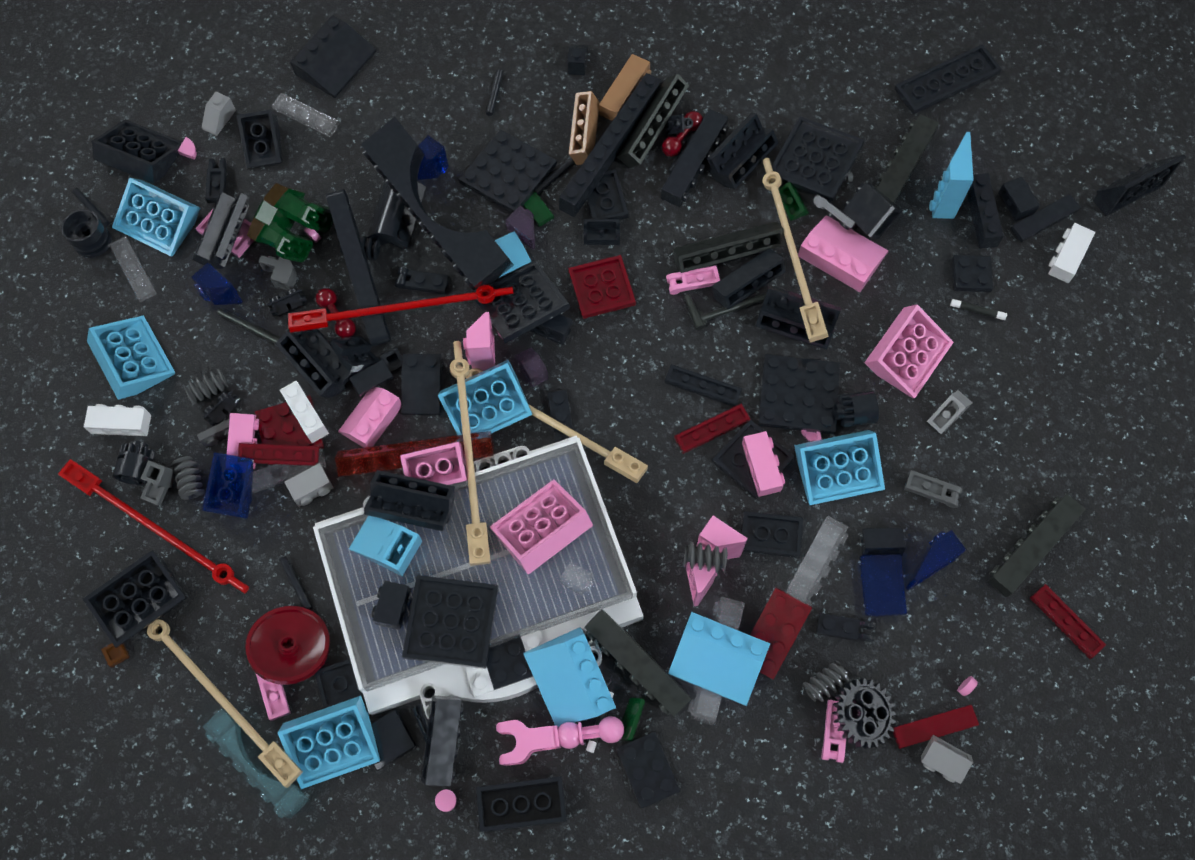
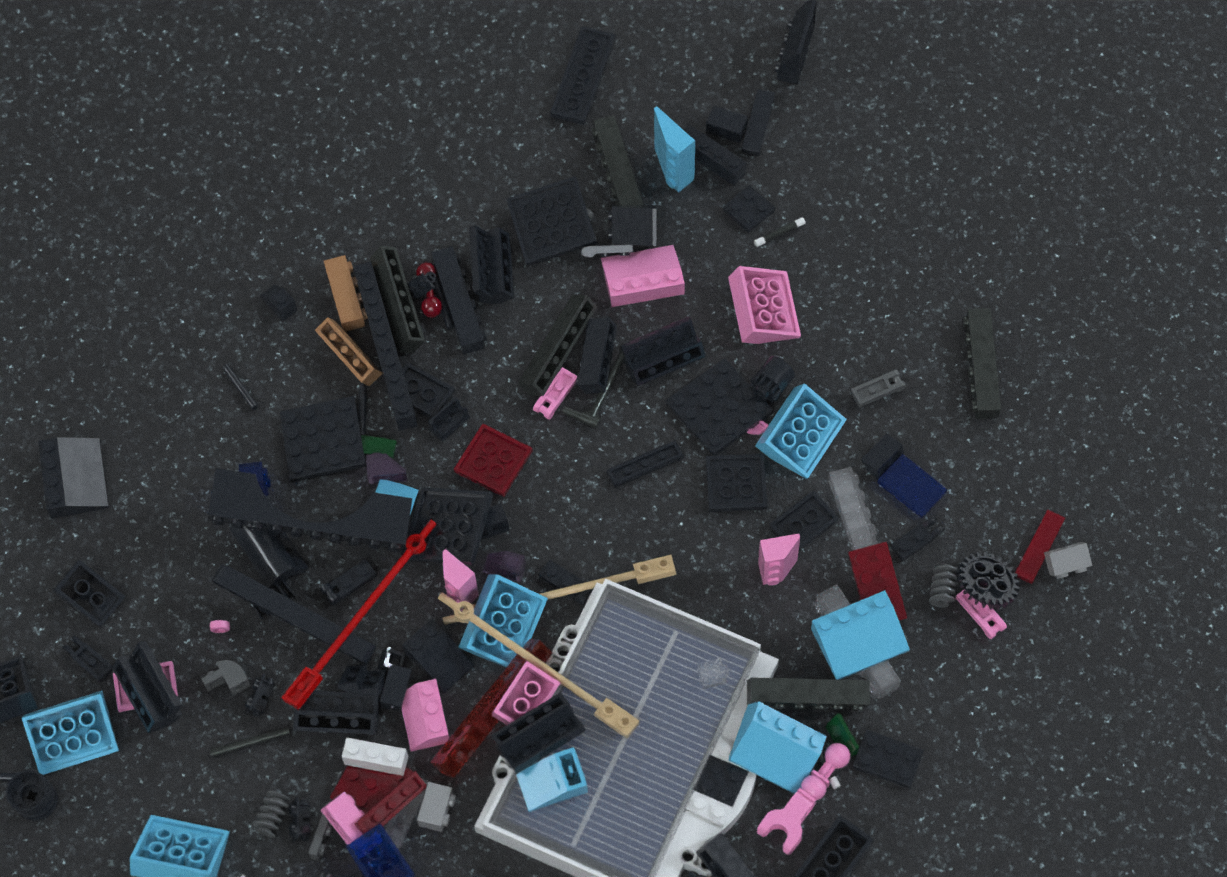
camera: 45 degrees left, 5 degrees down
(133, 269) = (98, 789): clear tile -> none
(187, 149) = (31, 657): bright pink tile -> none
(215, 287) = (193, 734): clear blue slope -> none
(217, 113) = (26, 607): light grey slope -> none
(276, 217) = (184, 621): dark green piece -> none
(305, 114) = (101, 541): clear tile -> none
(326, 299) = (289, 664): dark red piece -> none
(391, 605) = (604, 816): black brick -> none
(450, 622) = (657, 786): black plate -> none
(541, 526) = (648, 662): bright pink slope -> none
(699, 581) = (789, 592): bright pink slope -> none
(705, 557) = (787, 569): dark grey piece -> none
(712, 428) = (684, 488): dark red tile -> none
(763, 463) = (749, 478): bright pink brick -> none
(792, 202) = (564, 270): dark green slope -> none
(811, 311) = (672, 338): tan bar -> none
(942, 551) = (928, 426): clear blue slope -> none
(949, 411) = (835, 324): light grey slope -> none
(967, 686) = (1033, 499): bright pink tile -> none
(1068, 621) = (1052, 396): dark red tile -> none
(1070, 252) = (802, 133): white brick -> none

